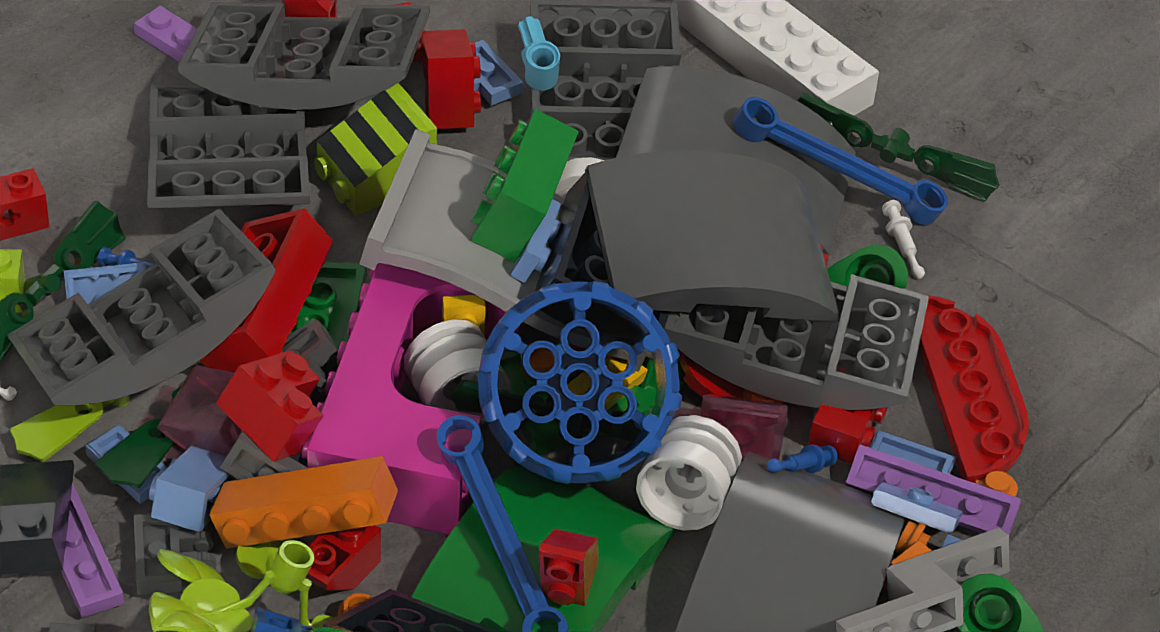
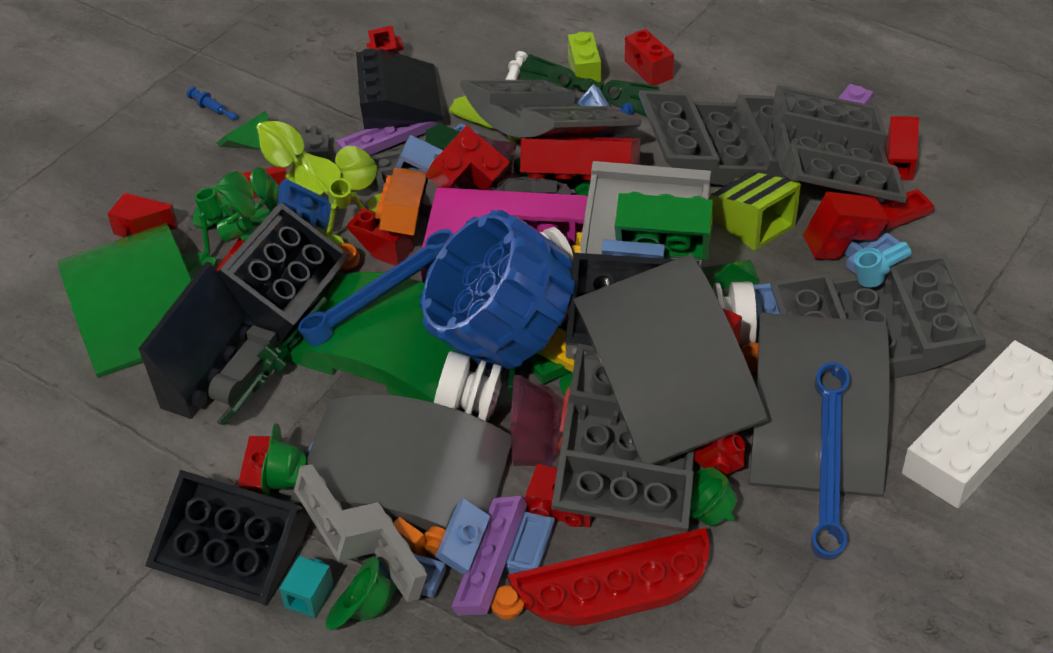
camera: 90 degrees right, 0 degrees up
(567, 566) = (352, 315): red slope -> none
(810, 459) = (502, 465): blue piece -> none
(899, 228) = (793, 526): white piece -> none
(956, 170) = (886, 512): dark green piece -> none

